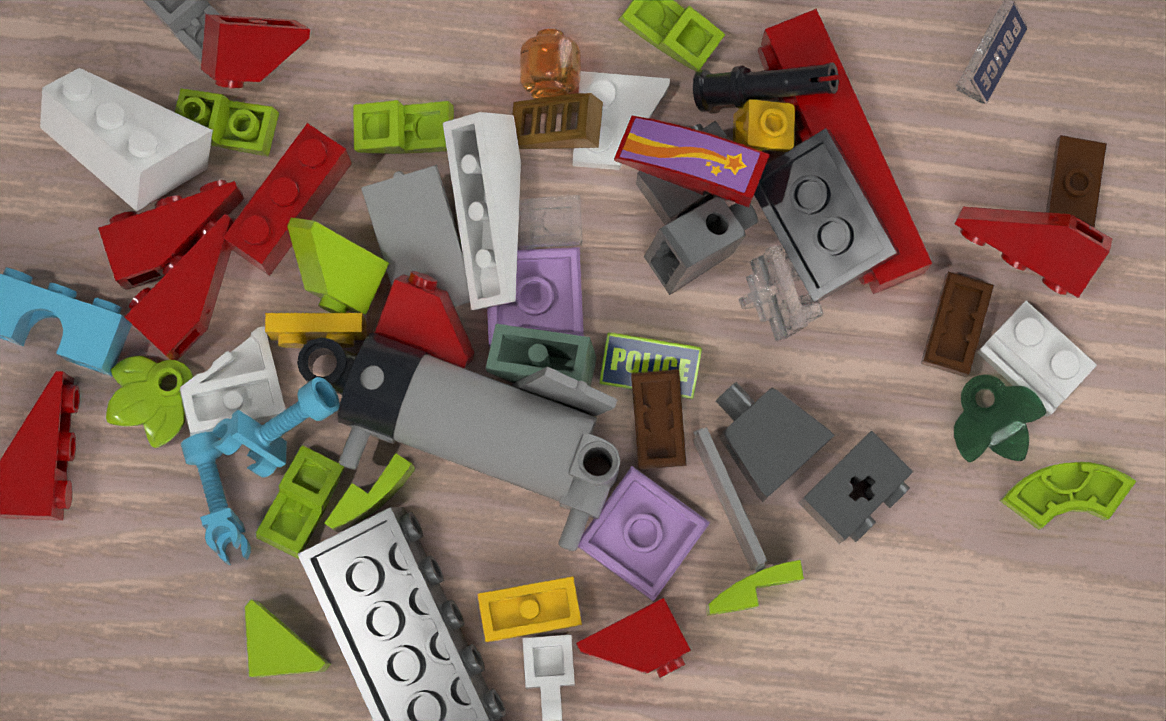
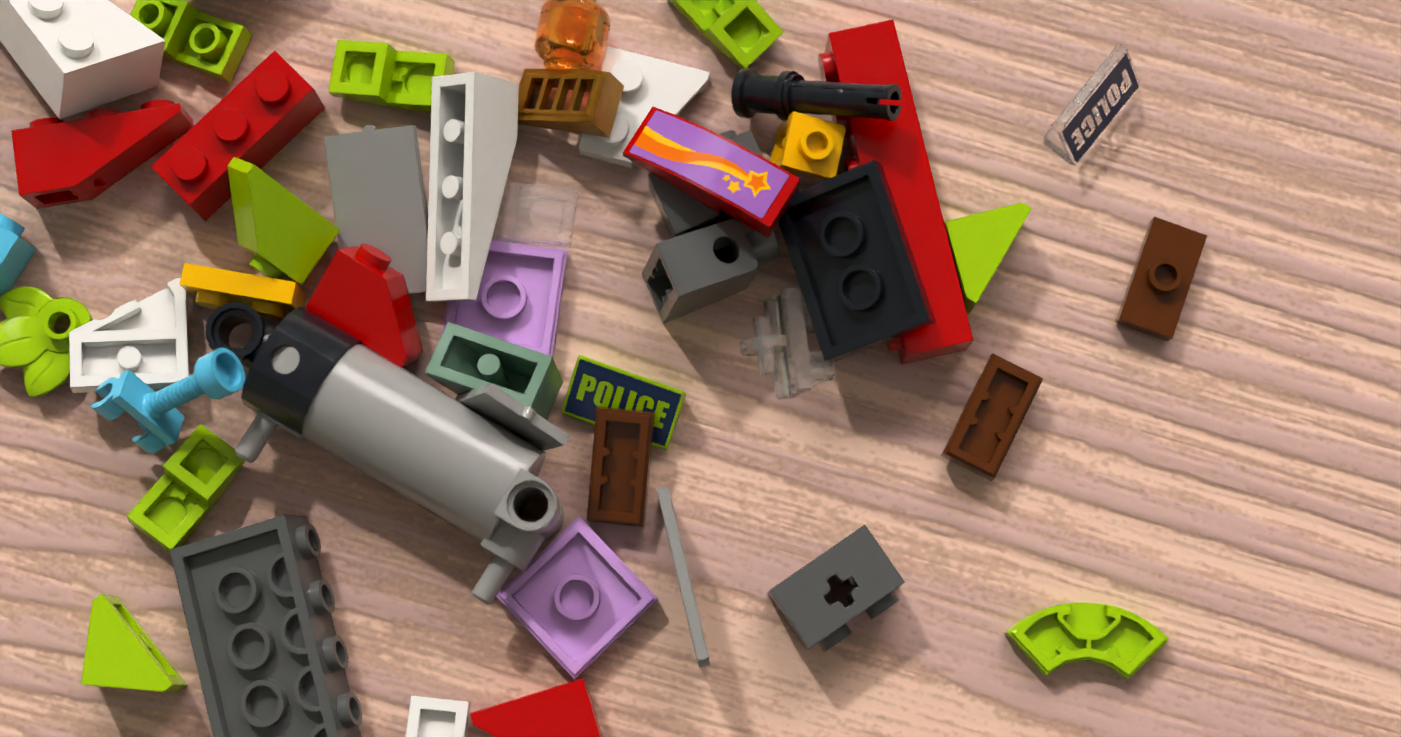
camera: 10 degrees right, 0 degrees up
(183, 301) = (99, 229): red slope -> none
(222, 522) = (86, 496): medium azure bar -> none
(359, 505) = (252, 504): lime slope -> none
(529, 609) = (426, 663): yellow plate -> none
(743, 593) = (678, 689): lime slope -> none
(769, 437) = (745, 510): dark grey torso -> none
(923, 184) = (980, 244): none -> lime slope
(1000, 425) = (1019, 544): clear green plate -> none
(1037, 356) = (1078, 474): white plate -> none
(1049, 244) = (1115, 341): red slope -> none

